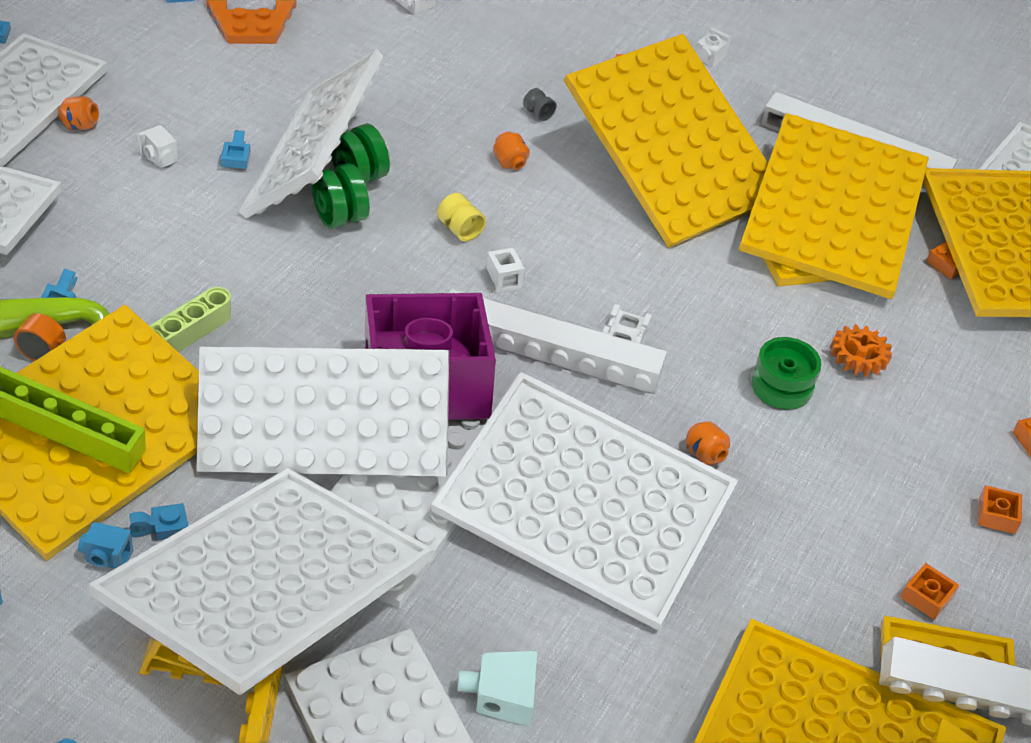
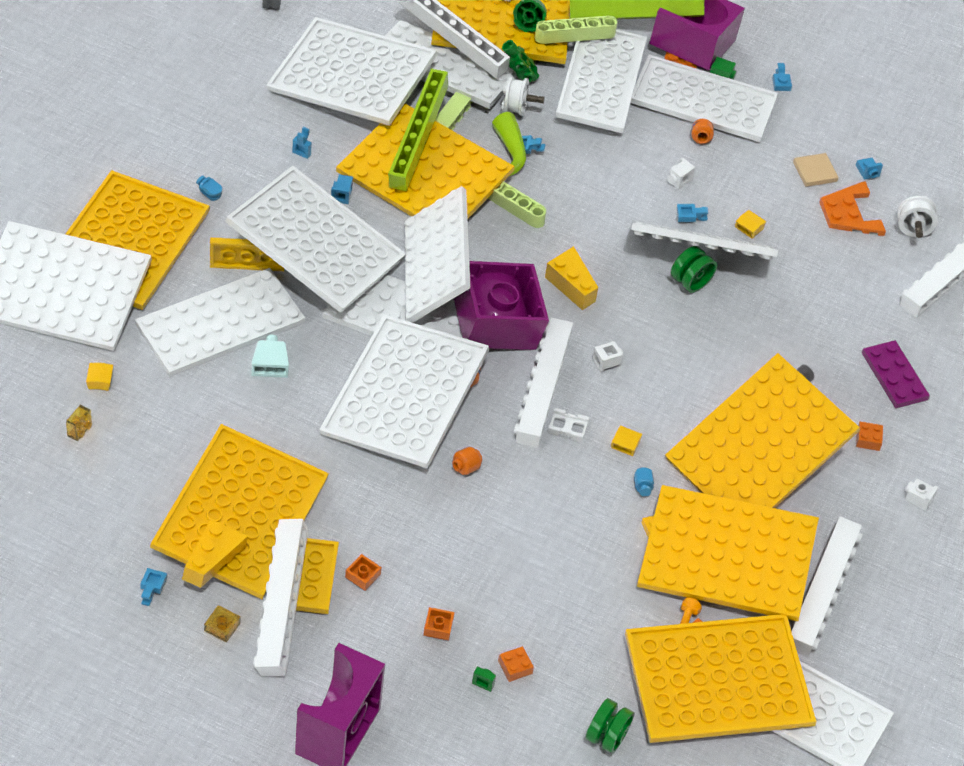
camera: 85 degrees right, 5 degrees up
(38, 336) = (488, 138): orange piece -> none
(163, 521) = (366, 212): dark azure plate -> none
(172, 33) = (815, 169): none -> tan tile
(265, 102) = (750, 224): none -> yellow piece
(341, 196) = (647, 261): green wheel -> none
(342, 283) = (572, 278): none -> yellow wedge
(461, 217) = (653, 330): light yellow wheel -> none
(511, 150) = (737, 359): orange head -> none
(527, 35) = (895, 374): none -> magenta plate
(650, 275) = (626, 440): none -> yellow piece
(719, 268) = (644, 481): none -> dark azure arm
(786, 372) = (537, 506): green wheel -> none
(861, 350) = (566, 556): orange gear -> none
(915, 254) = (690, 606): none -> light orange plate

